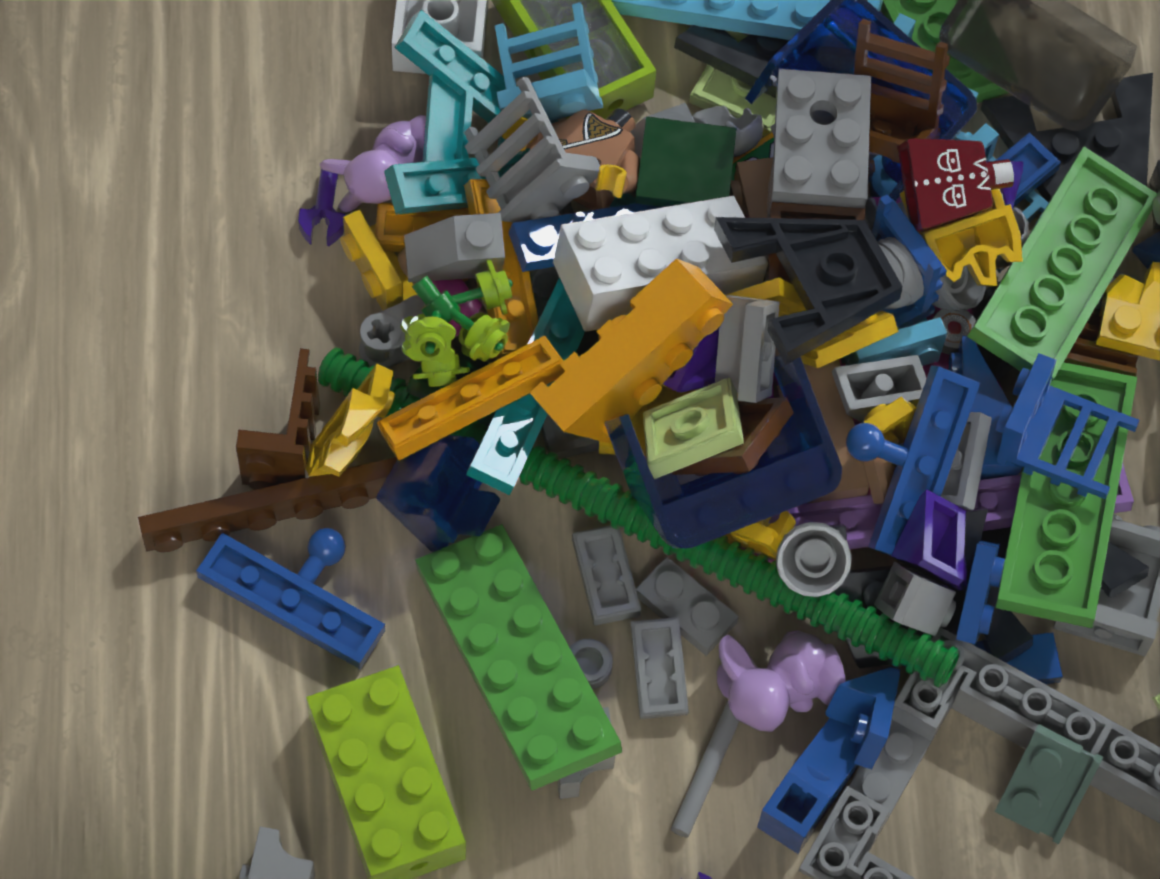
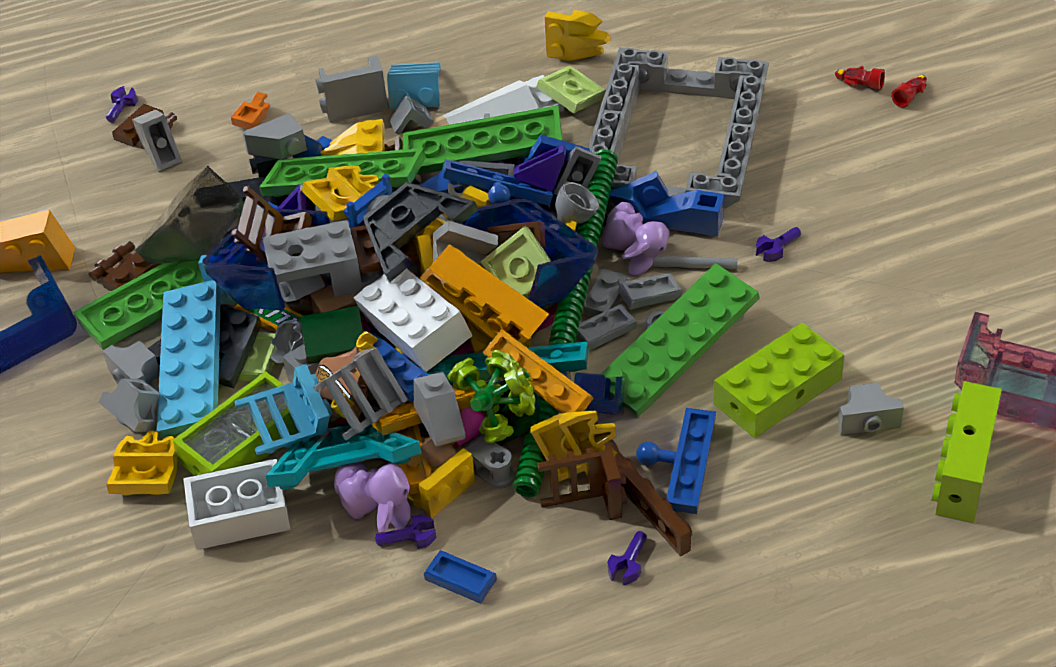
camera: 100 degrees left, 20 degrees down
(160, 462) = (628, 560): none -> dark purple bar
(225, 250) = (460, 576): none -> blue tile
(949, 180) = (328, 187): dark red torso -> none
(1032, 420) = (452, 142): blue plate -> none
(1048, 784) = (641, 130): sand green plate -> none

